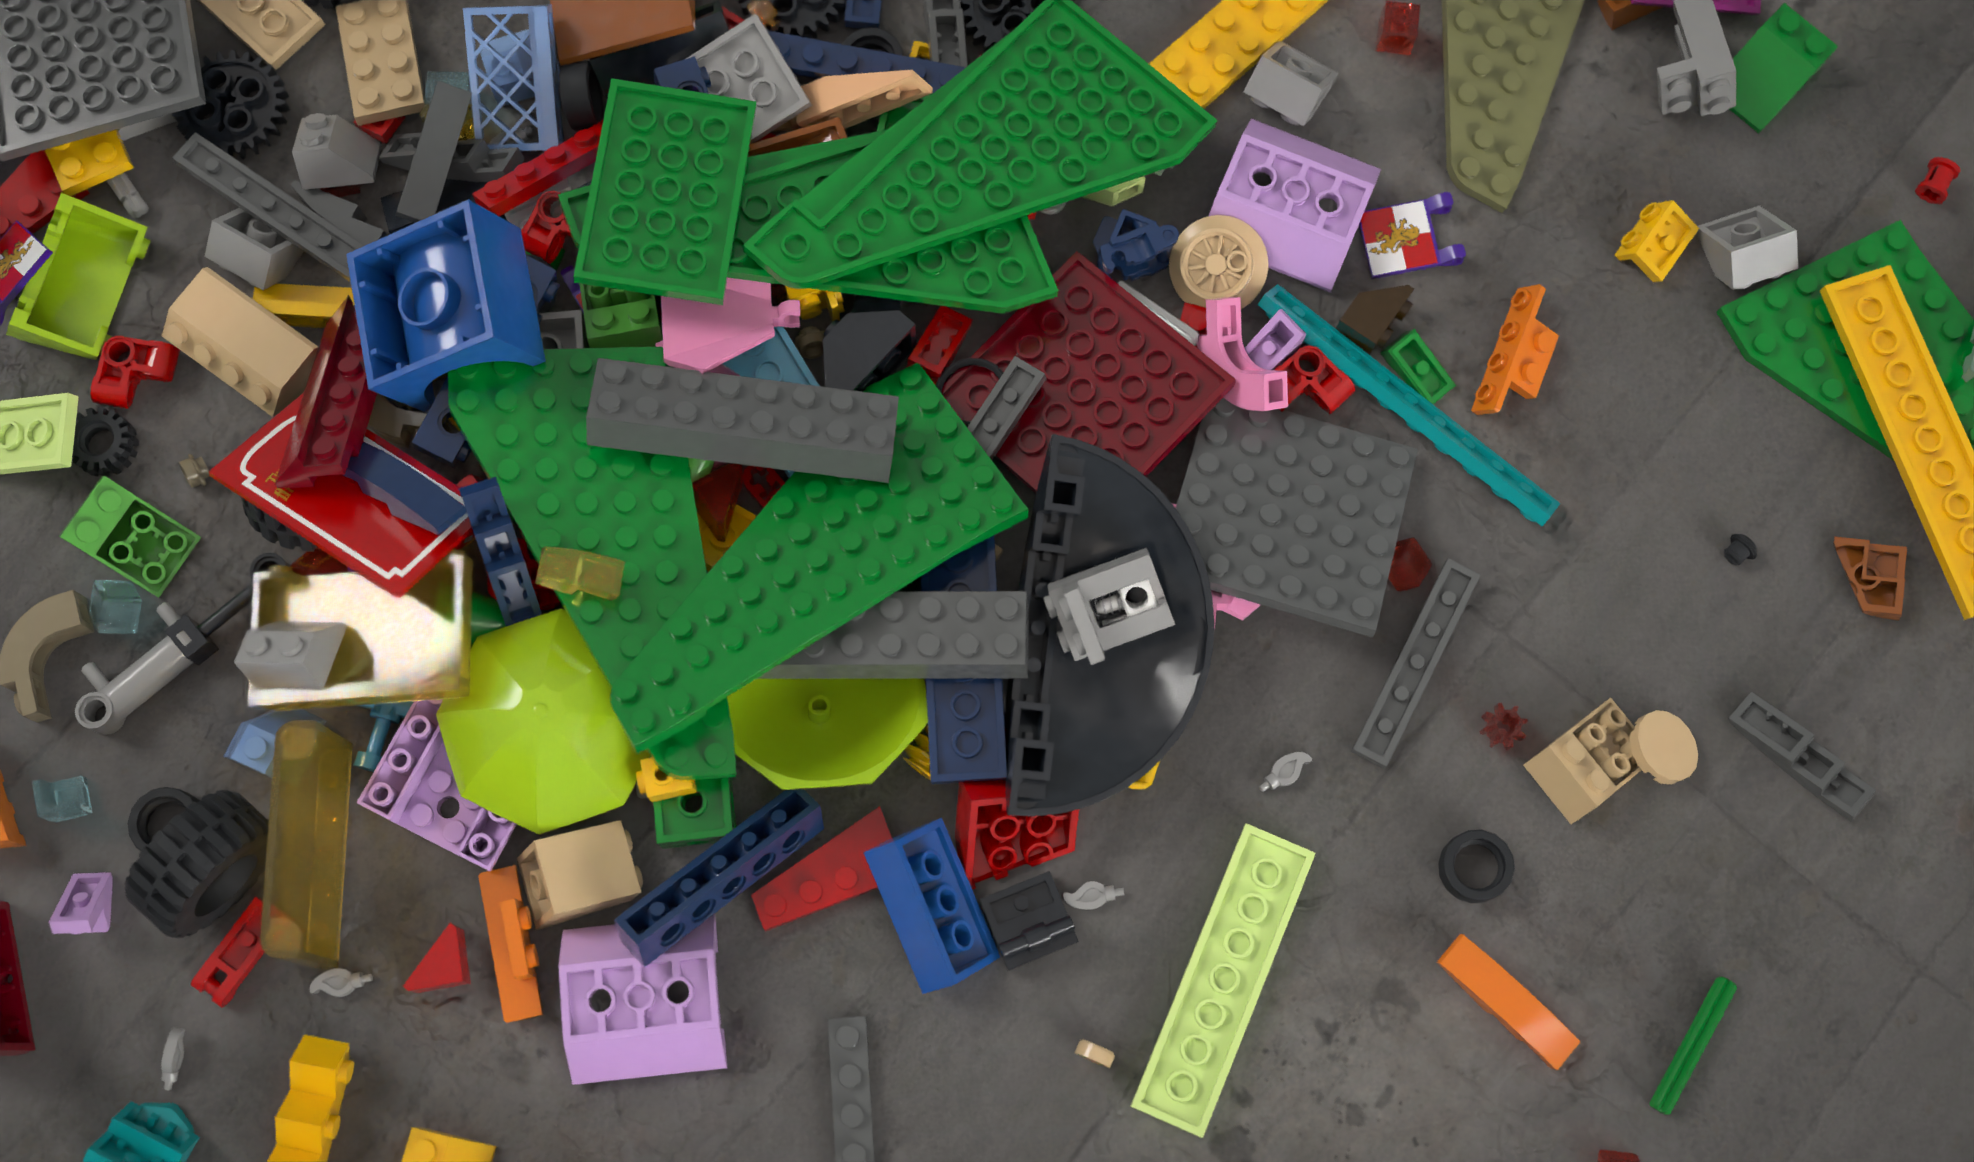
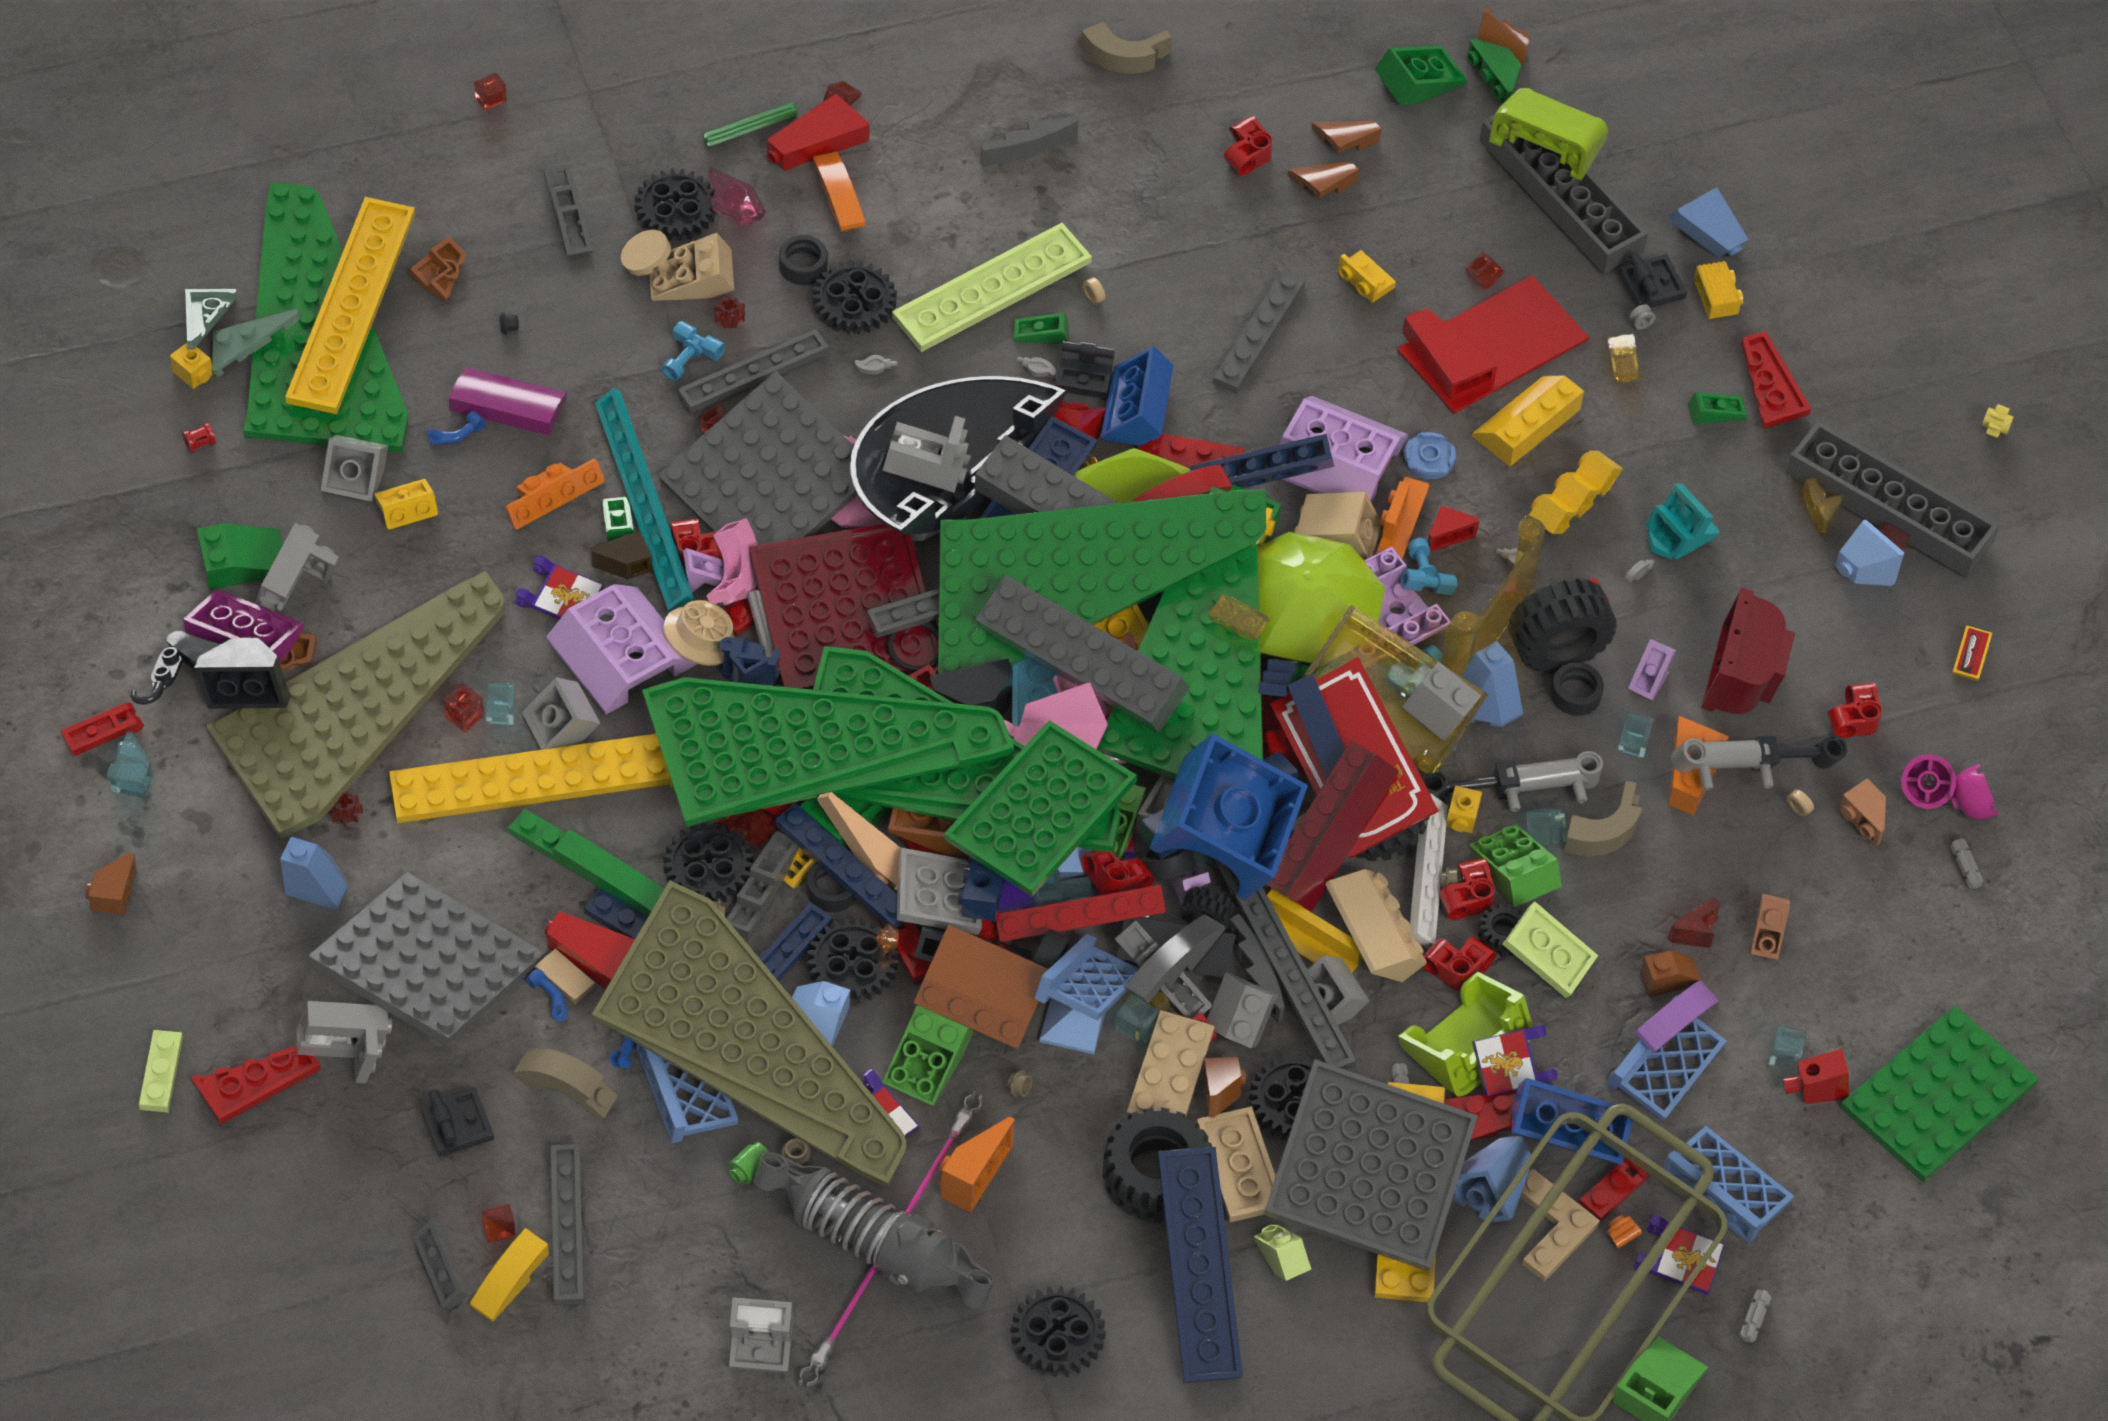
camera: 150 degrees left, 20 degrees down
(164, 449) = (1462, 898): none -> red piece
(215, 444) = (1428, 877): none -> white plate
(222, 567) = (1463, 809): none -> yellow brick
(314, 68) = (1222, 1083): none -> dark orange slope
(354, 660) = (1404, 678): none -> clear light blue panel
(430, 869) = (1426, 574): none -> dark azure bar
(531, 1074) = (1429, 455): none -> medium blue tile
(773, 749) = (1188, 484): none -> red slope
(1123, 956) = (1042, 329): none -> green slope
(1363, 60) = (501, 703): none -> clear light blue panel
(1385, 816) = (854, 297): none -> black gear
(1509, 655) = (694, 346): none -> dark azure bar
(1600, 1079) = (821, 131): none -> red slope
(1622, 898) = (735, 198): none -> clear pink slope
(1659, 446) = (507, 400): none -> magenta slope
(1687, 353) = (474, 423): none -> blue piece
(1707, 875) = (675, 204): none -> black gear

